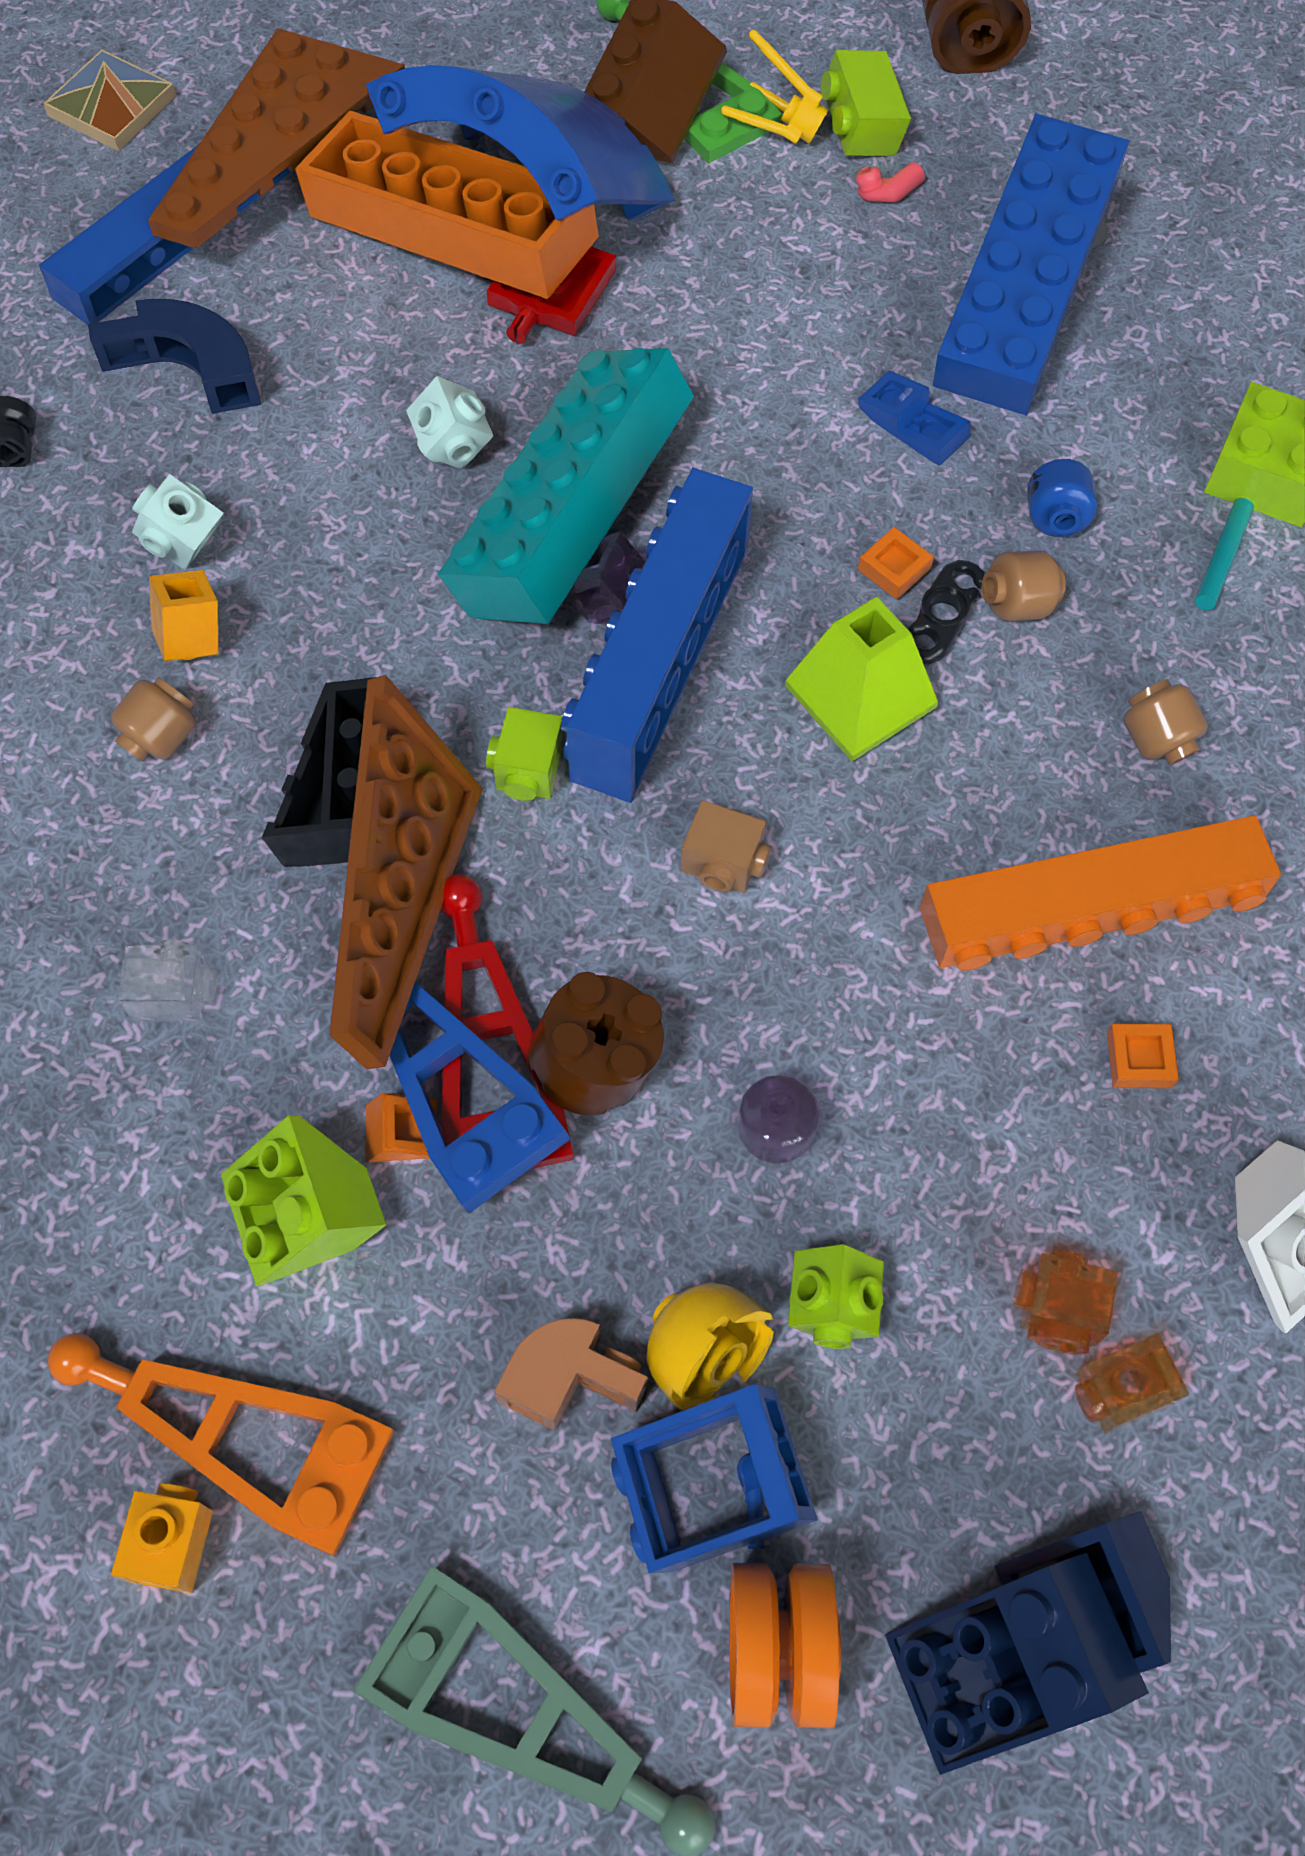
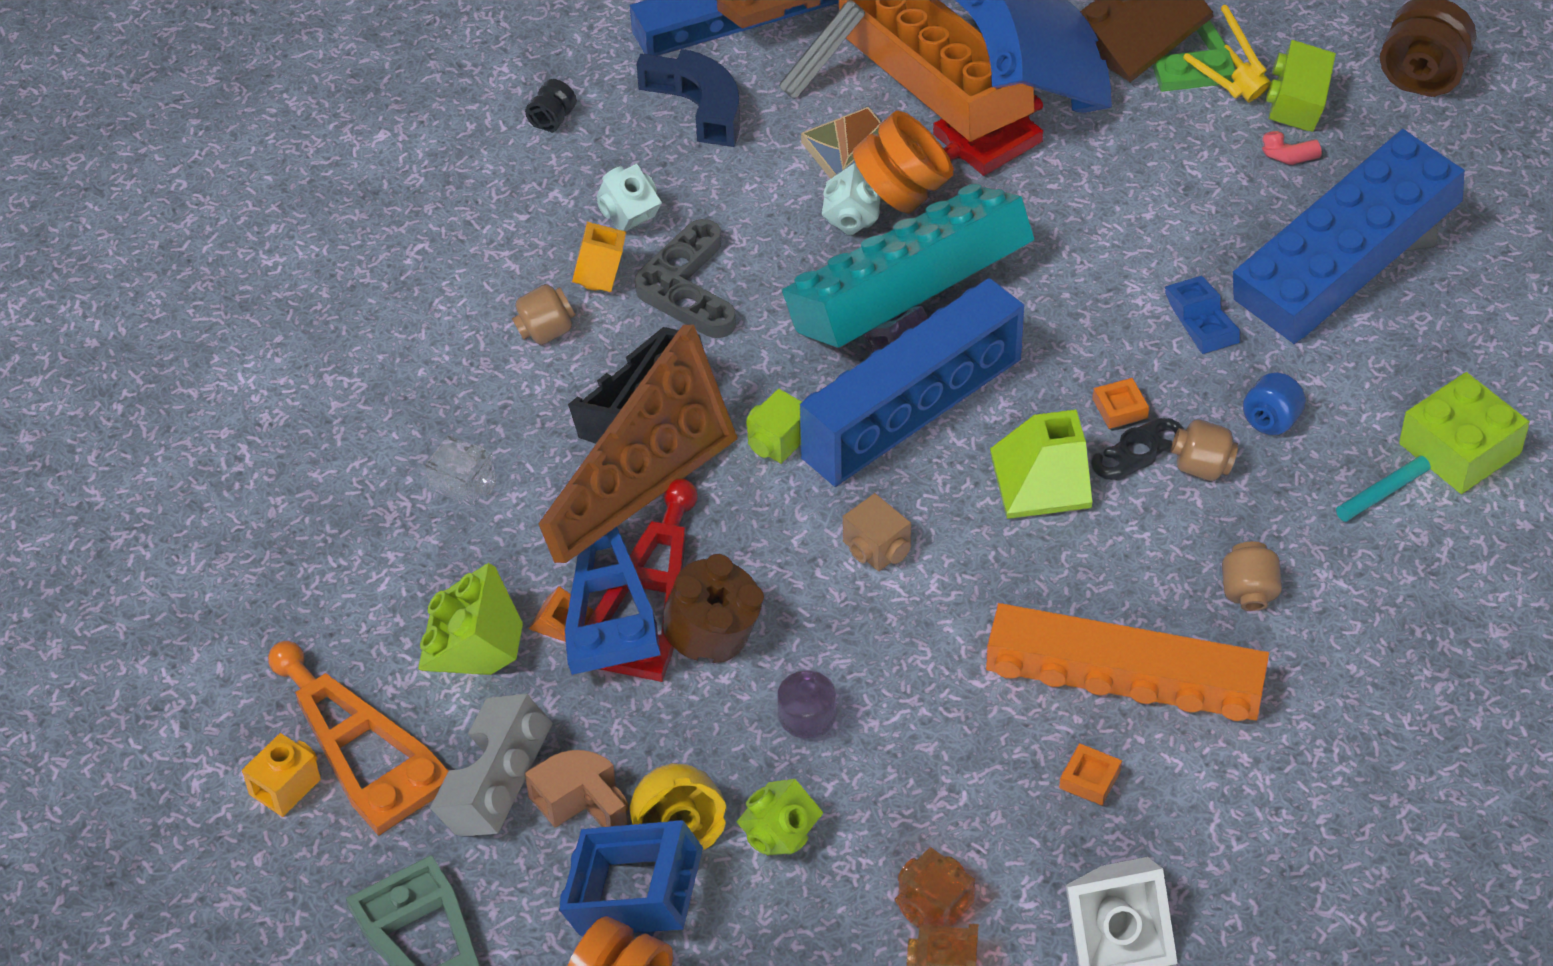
camera: 30 degrees right, 15 degrees down
(286, 604) = (676, 284): none -> dark grey beam
(308, 241) = (822, 49): none -> axle
(404, 352) = (834, 141): none -> tile
(454, 1444) = (481, 795): none -> light grey arch
(490, 353) = (903, 162): none -> orange wheel

